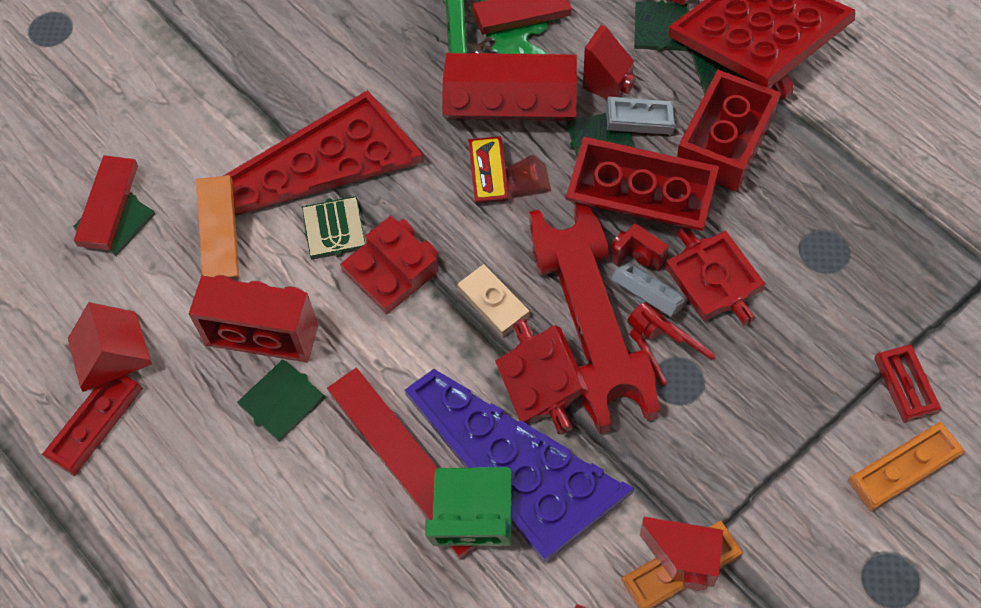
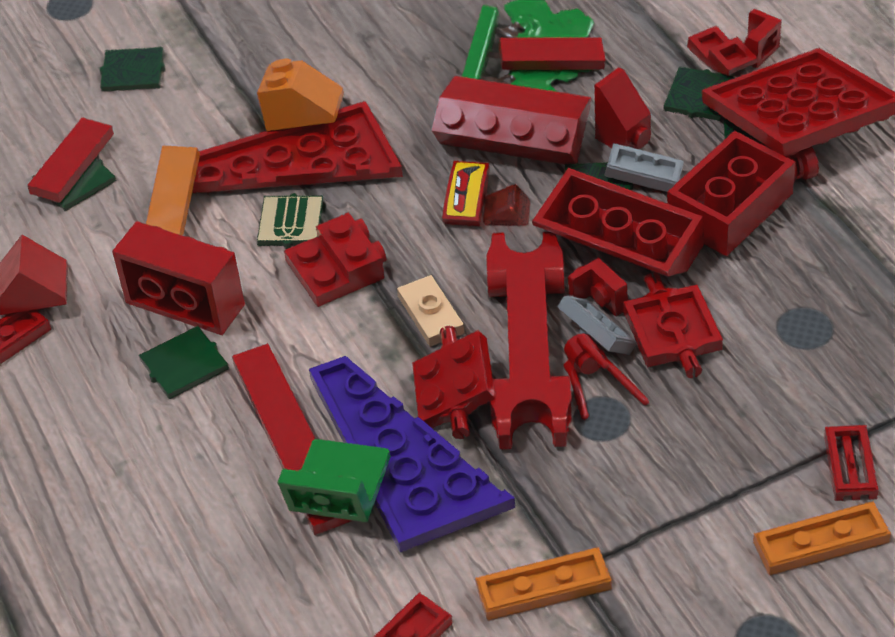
camera: 15 degrees right, 15 degrees down
(133, 90) = (132, 69): none -> dark green piece
(306, 98) = (297, 96): none -> orange slope
(685, 550) = (547, 557): red slope -> none

